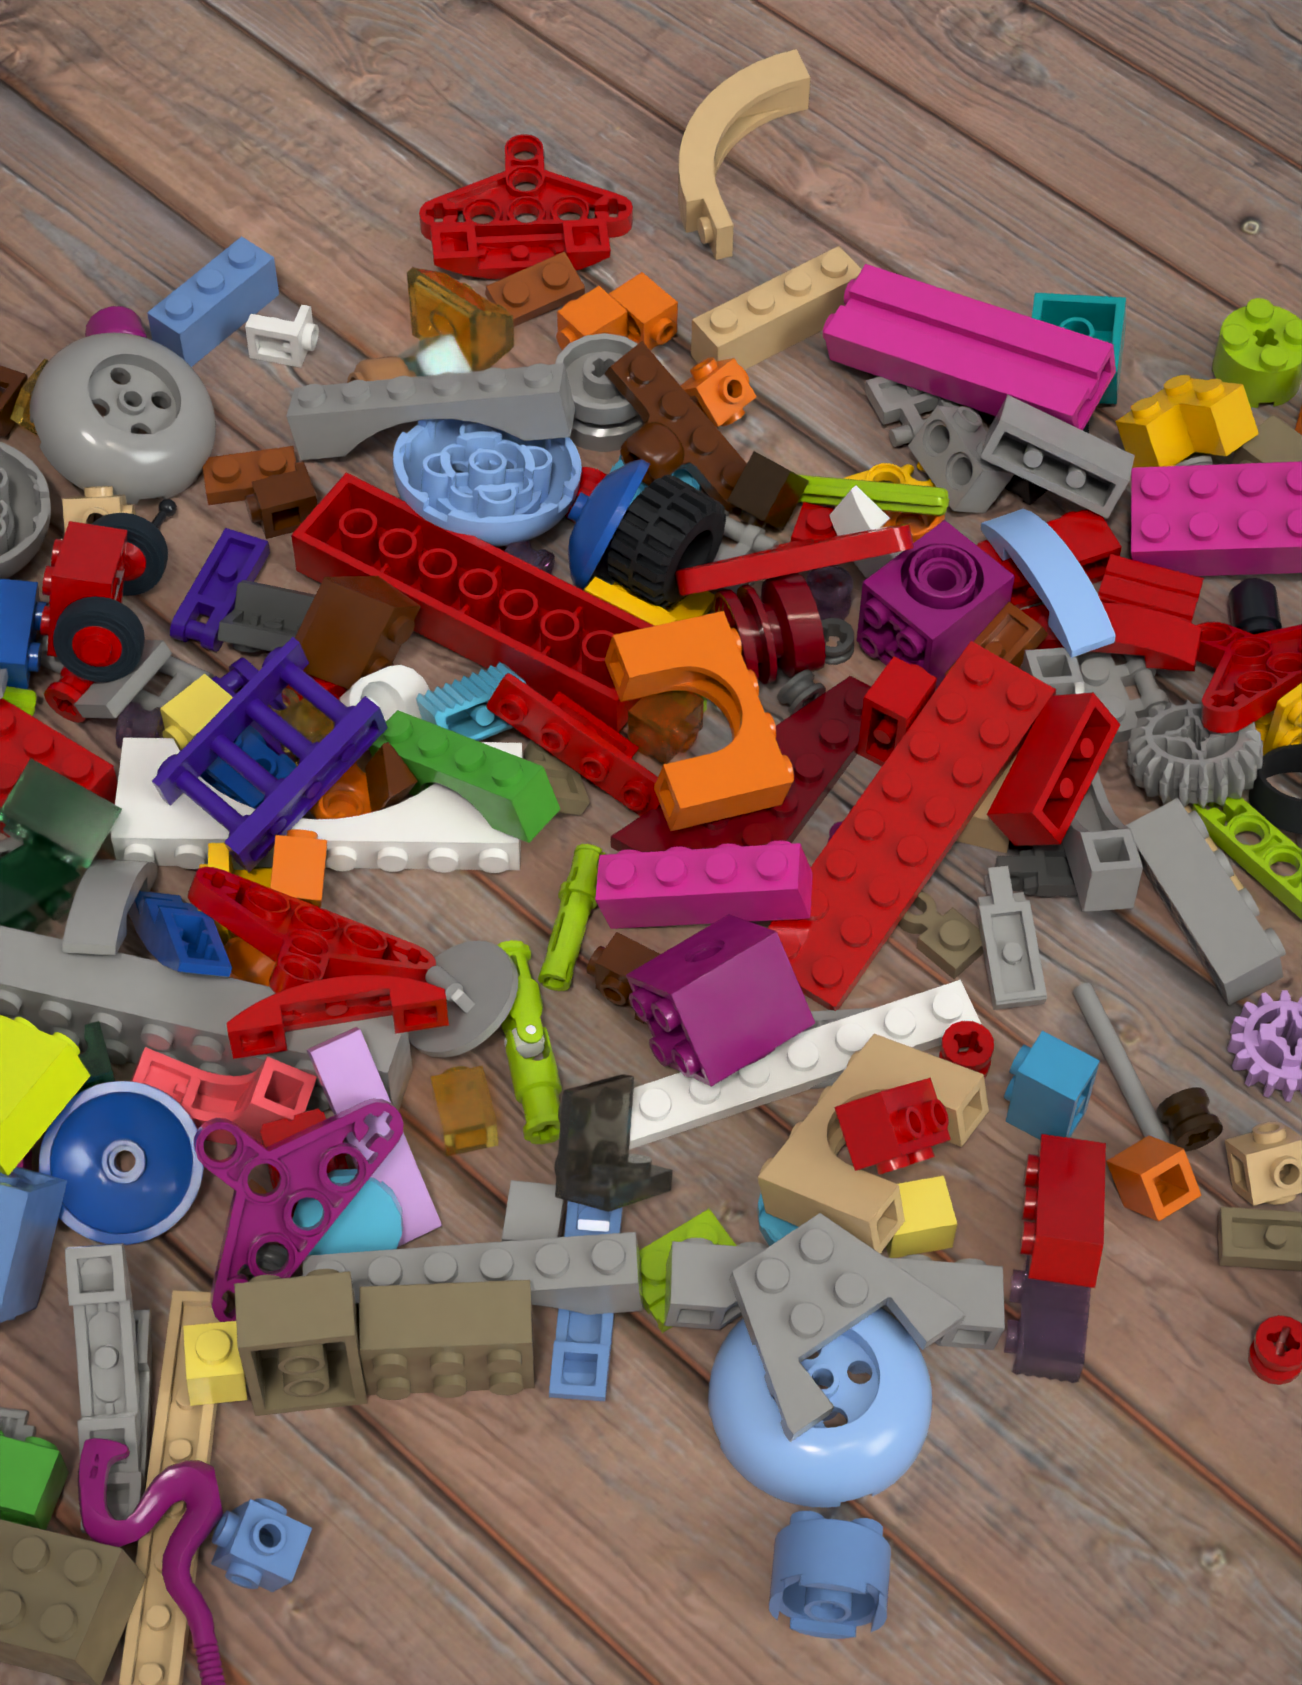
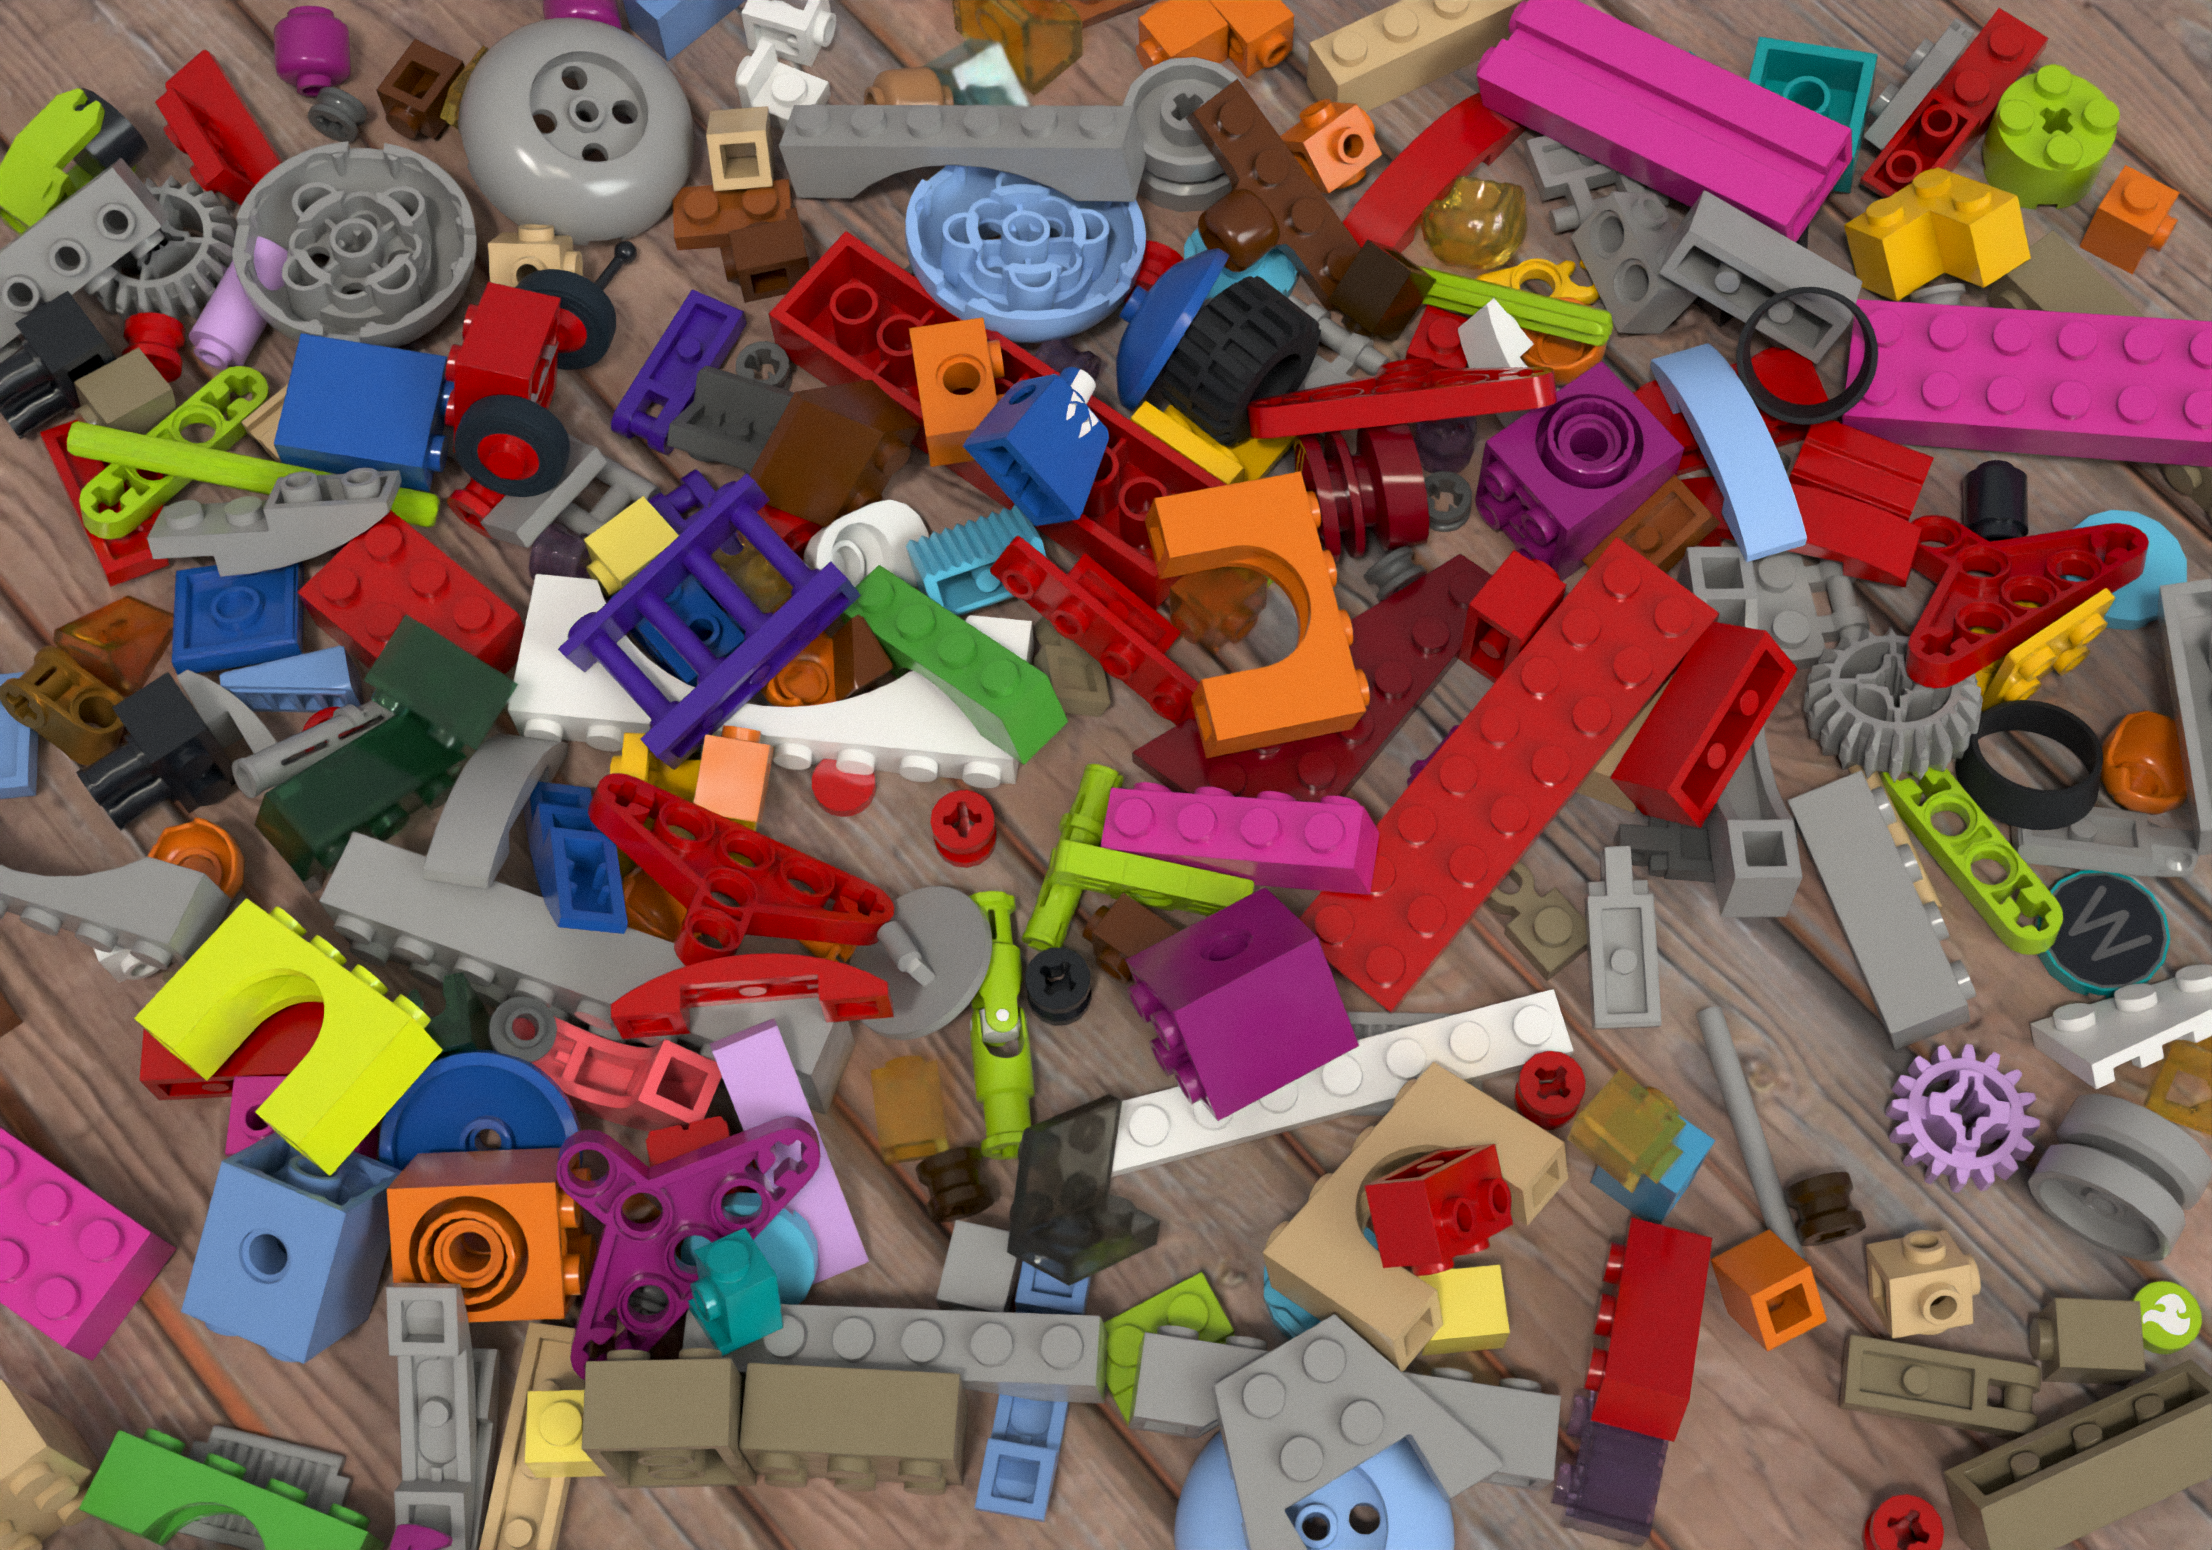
camera: 10 degrees right, 10 degrees up
(135, 1069) = (502, 1036): none -> dark grey plate
(174, 1207) = (494, 1229): none -> orange brick
(254, 424) = (740, 148): none -> tan brick
(273, 384) = (773, 84): none -> white bracket
(288, 572) = (765, 353): none -> dark grey bush
(344, 1233) = (735, 1293): none -> teal brick
(382, 885) = (842, 792): none -> red tile
(450, 576) = (950, 359): none -> orange brick
(474, 910) = (967, 843): none -> red wheel
(505, 1159) = (954, 1184): none -> dark brown wheel
(521, 607) = (1043, 445): none -> blue torso
(573, 1023) = (1056, 1000): none -> black wheel
(641, 922) = (1144, 879): none -> lime piece
(795, 407) = (1428, 170): none -> red slope
(835, 440) = (1476, 224): none -> clear yellow hair
(1033, 1054) = (1630, 1131): none -> clear yellow brick
(1133, 537) = (1810, 413): none -> black tyre
(1164, 303) = (1926, 68): none -> light grey plate
(1193, 337) = (1960, 107): none -> red slope

